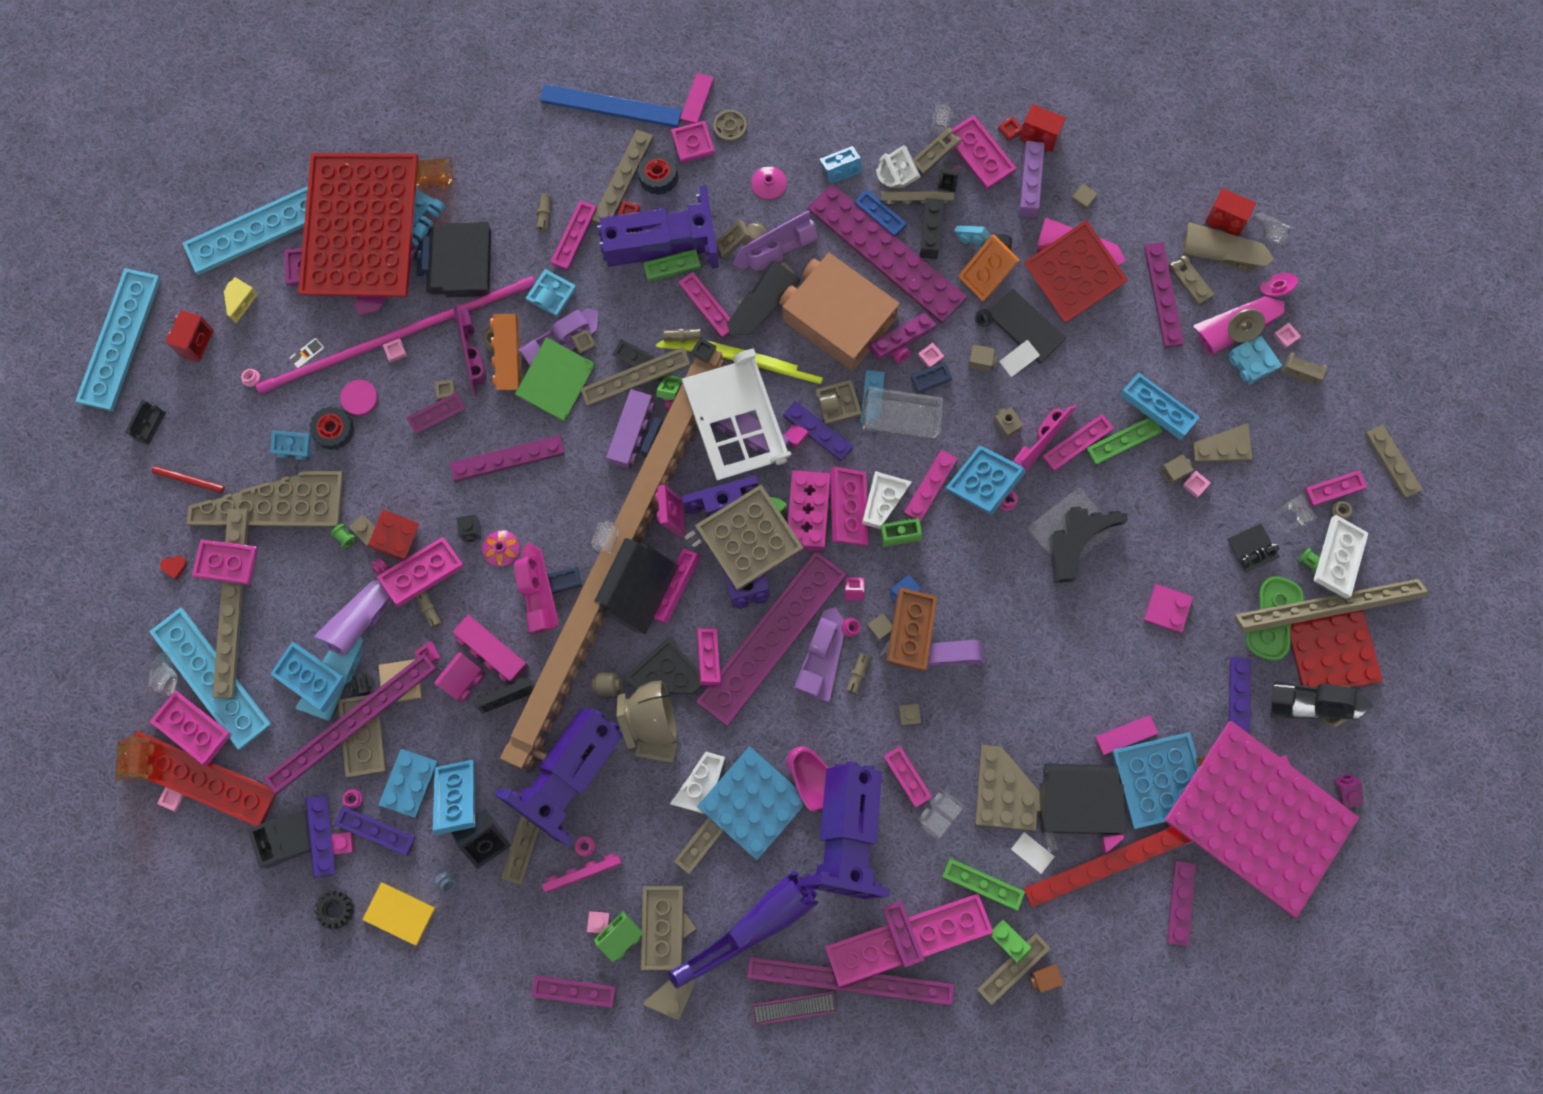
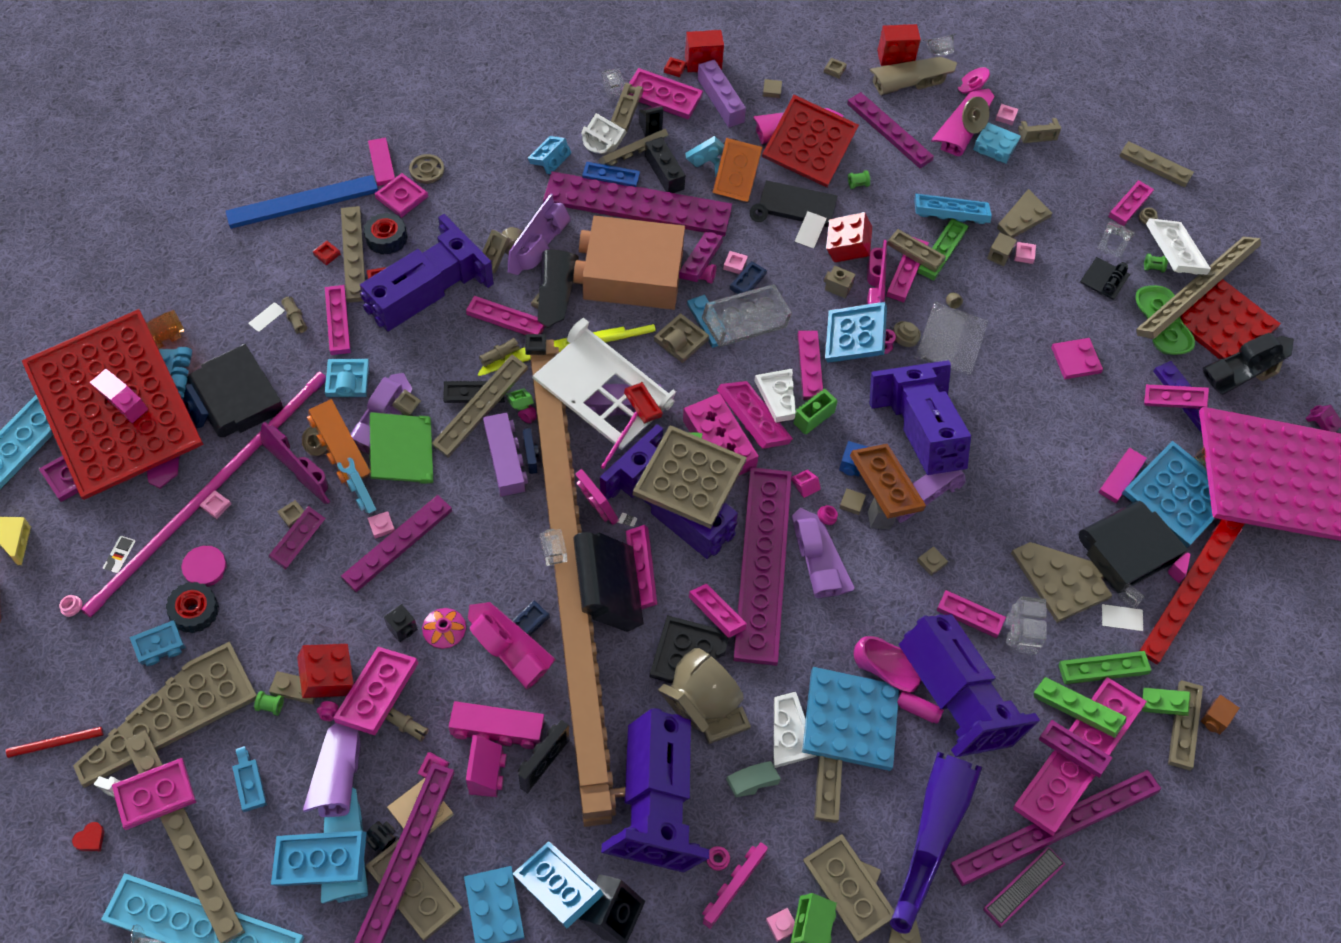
camera: 40 degrees left, 15 degrees down
(201, 534) = (106, 785): none -> white plate
(297, 588) = (248, 781): none -> dark azure plate
(363, 223) = (119, 395): none -> dark pink slope
(499, 394) = (356, 484): none -> medium azure plate
(504, 436) = (381, 524): none -> bright pink plate
(520, 851) = (657, 901): dark tan plate -> none
(523, 201) = (266, 317): none -> white sticker
(602, 166) = (326, 252): none -> red tile
(606, 684) = (637, 691): dark tan head -> none
(648, 803) = (749, 779): none -> sand green slope
(672, 265) = (450, 301): bright green plate -> none
(726, 468) = (619, 440): none -> dark pink piece
(759, 449) = (643, 402): none -> red tile
(772, 189) = (493, 203): dark pink dish -> none
(796, 435) = (665, 380): dark pink slope -> none
(811, 825) = (920, 707): none -> dark pink piece
(818, 431) = (679, 370): dark purple plate -> none
(858, 674) = (862, 551): dark tan pin -> none
(935, 904) = (1080, 707): none -> bright green plate
(982, 358) = (780, 243): dark tan brick -> none
(985, 588) = (928, 413): none -> dark purple brick
(1031, 503) = (906, 334): none -> dark tan plate
(1043, 386) = (849, 237): none -> red brick
(1067, 547) = (962, 341): black arch -> none
(1095, 430) = (916, 250): none -> dark tan tile
(1096, 332) = (859, 179): none -> bright green bush
(1097, 495) = (954, 300): none -> dark tan hinge
(1158, 203) = (835, 68): none -> dark tan tile
(1181, 903) = (1273, 585): magenta plate -> none
(1191, 280) = (903, 109): dark tan plate -> none
(1225, 695) = (1176, 396): none -> dark pink plate

